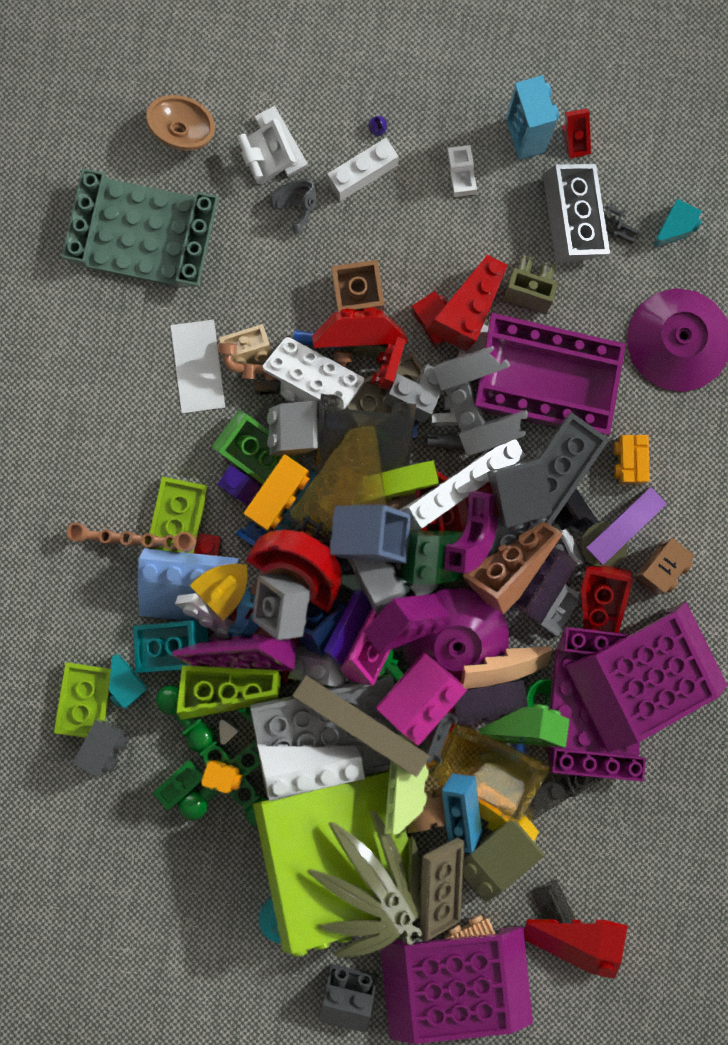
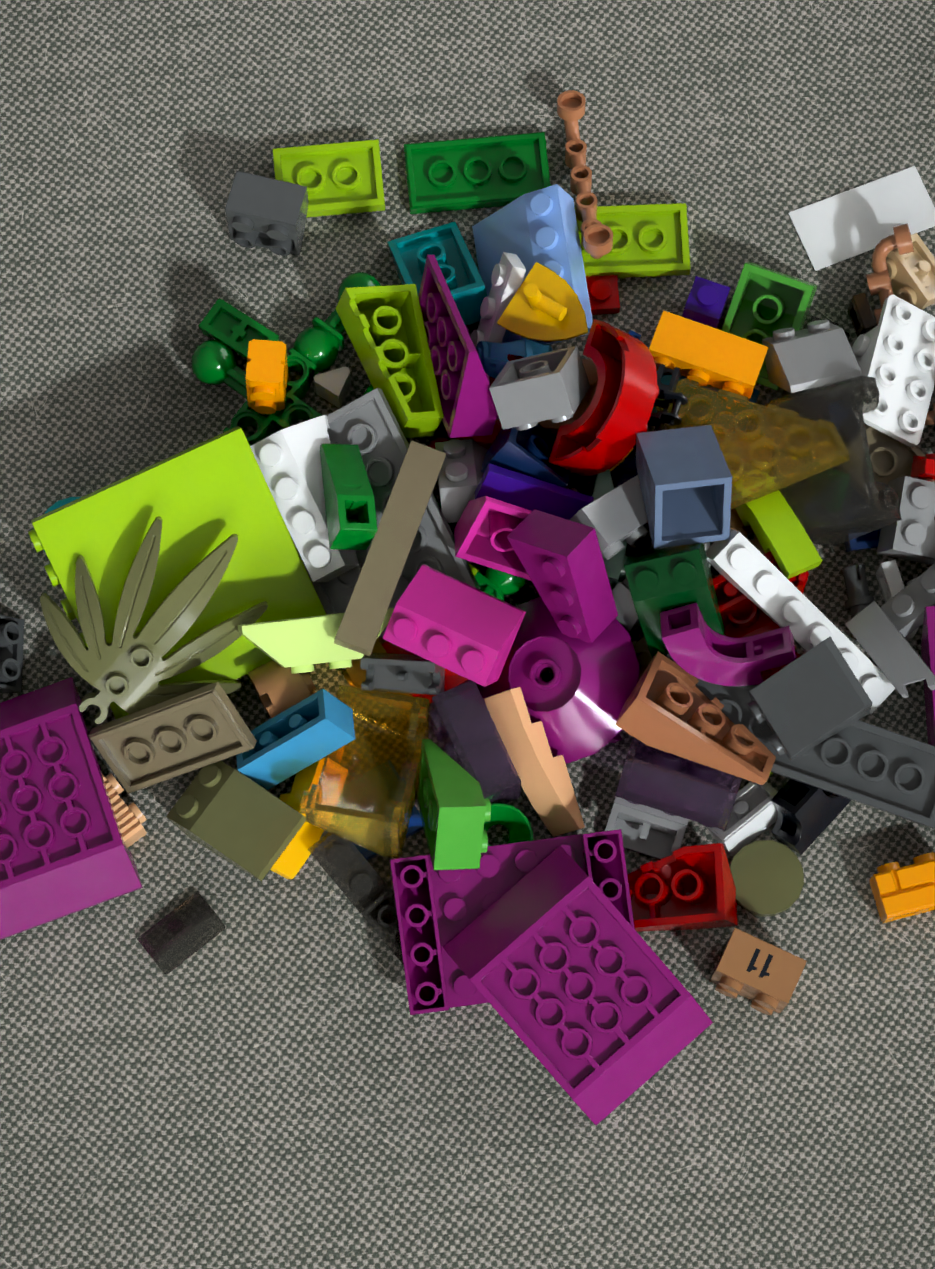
camera: 80 degrees right, 10 degrees down
(103, 603) = (474, 171): none -> green tile
(124, 683) = (368, 227): teal slope -> none
(318, 745) = (347, 497): none -> green slope
(589, 946) = (135, 986): red wedge -> none
(626, 526) = (806, 902): medium lavender slope -> none

